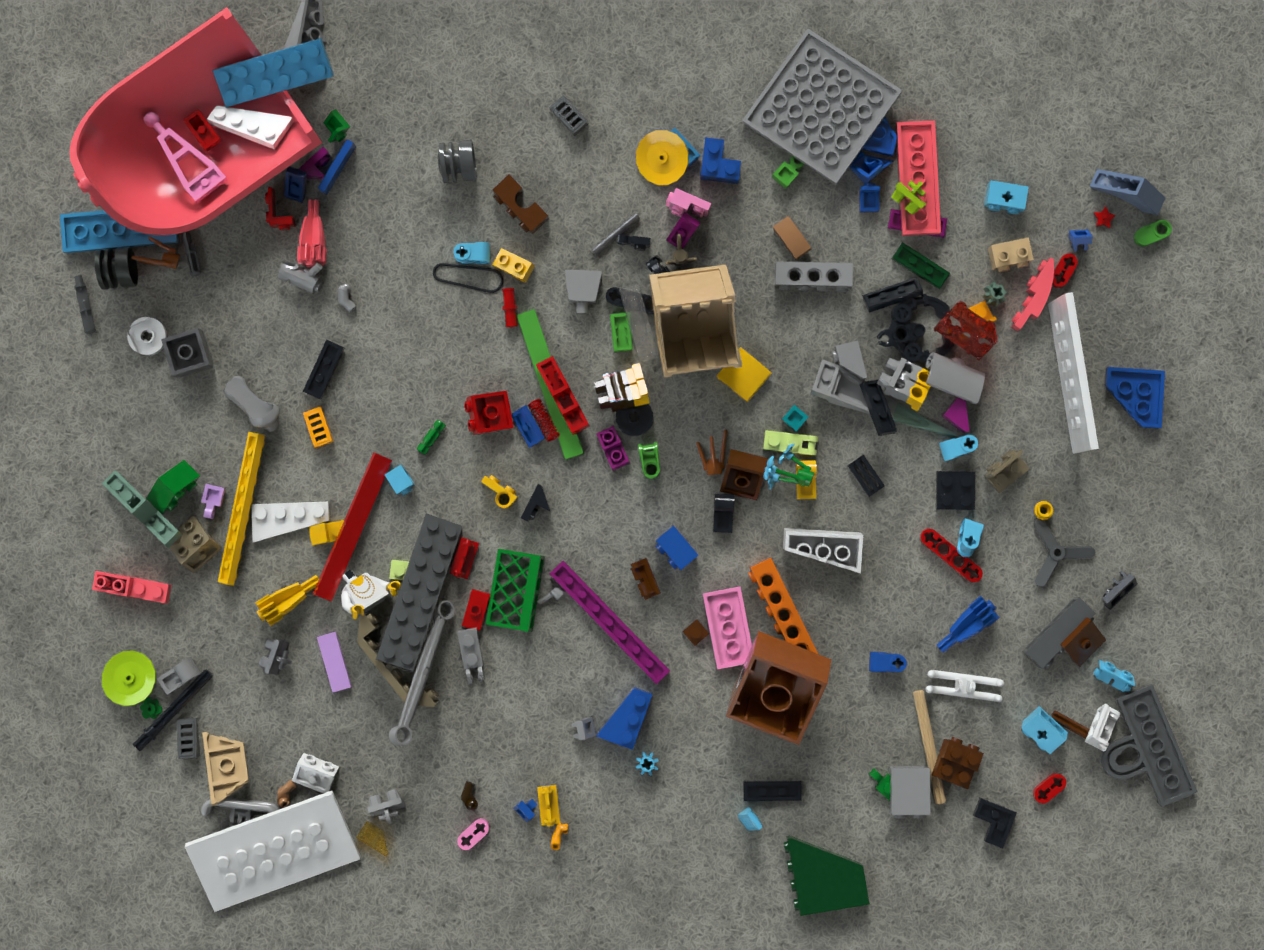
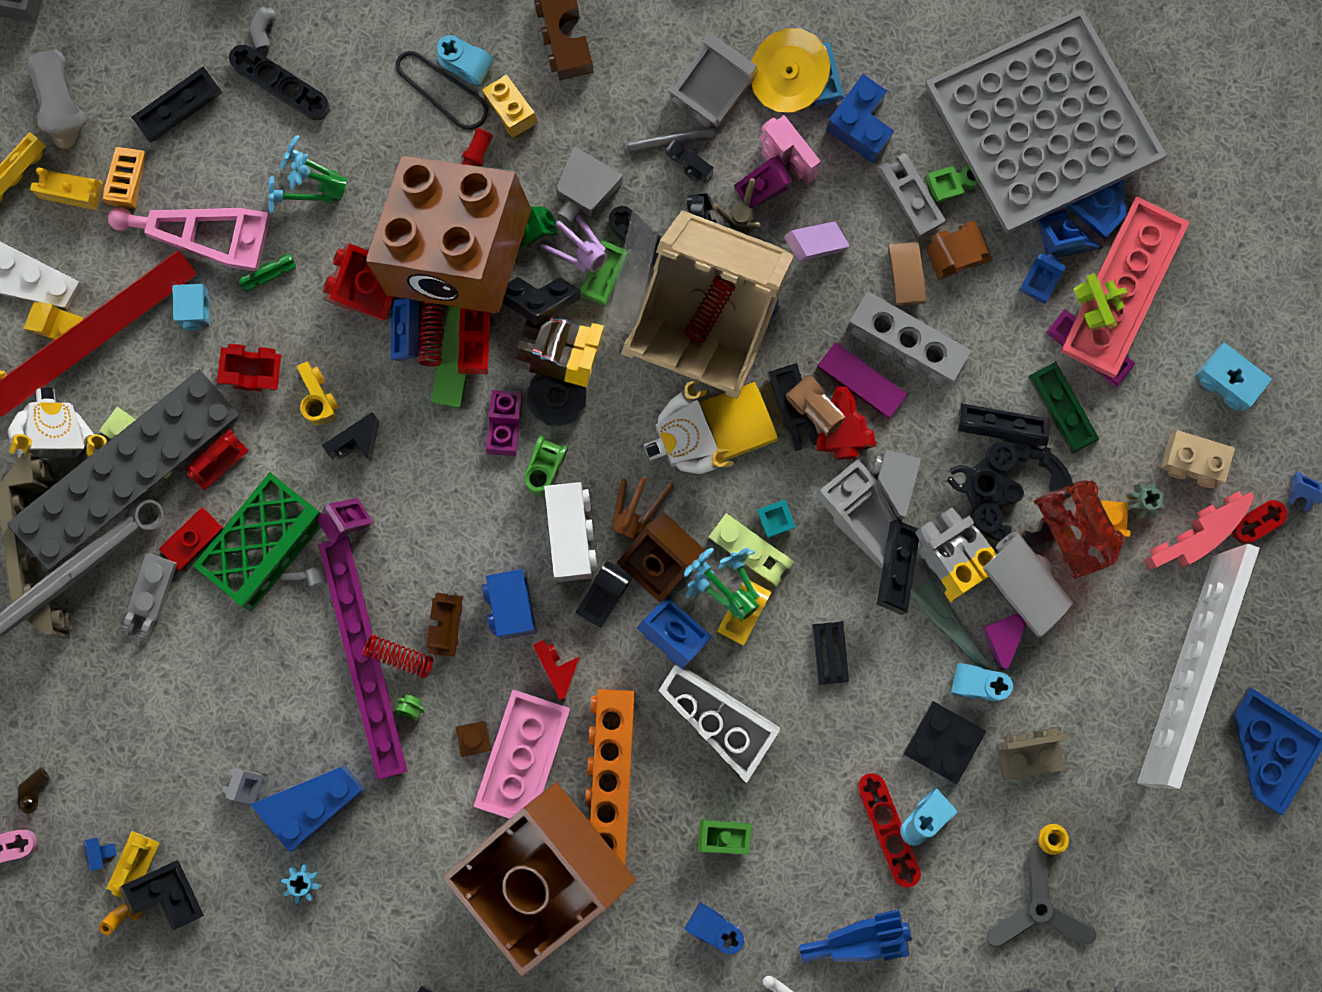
camera: 25 degrees right, 5 degrees down
(290, 452) = (67, 189): none -> yellow hinge
(374, 321) = (279, 82): none -> black beam
(409, 425) = (246, 243): none -> bright pink plate
(437, 367) = (329, 182): none -> plant
(454, 497) = (249, 369): none -> red cylinder
(526, 360) = (449, 234): none -> dark orange brick
(556, 552) = (342, 518): none -> magenta slope
(565, 328) = (539, 224): none -> green bracket
(576, 806) = (170, 889): none -> black plate
(596, 370) = (540, 303): none -> black plate
(609, 326) = (590, 255): none -> lavender plant
(612, 612) = (428, 660): none -> red piece
(621, 188) = (713, 82): none -> light grey panel
(651, 635) = (409, 707): none -> bright green plate
(686, 489) = (570, 532): none -> white brick
(695, 337) = (699, 331): none -> red piece
(720, 399) = (686, 435): none -> white torso
(724, 572) = (560, 676): none -> red slope
(732, 249) = (816, 241): none -> lavender tile
(769, 347) = (782, 382): none -> black hinge
(770, 191) = (912, 195): none -> light grey plate
(775, 513) = (674, 632): none -> blue plate
(778, 341) = (810, 399): none -> medium nougat piece
(799, 313) = (862, 380): none -> magenta tile
(805, 345) = (853, 432): none -> red rock
(814, 208) = (958, 250): none -> dark orange cylinder
(864, 609) = (724, 837): none -> bright green slope

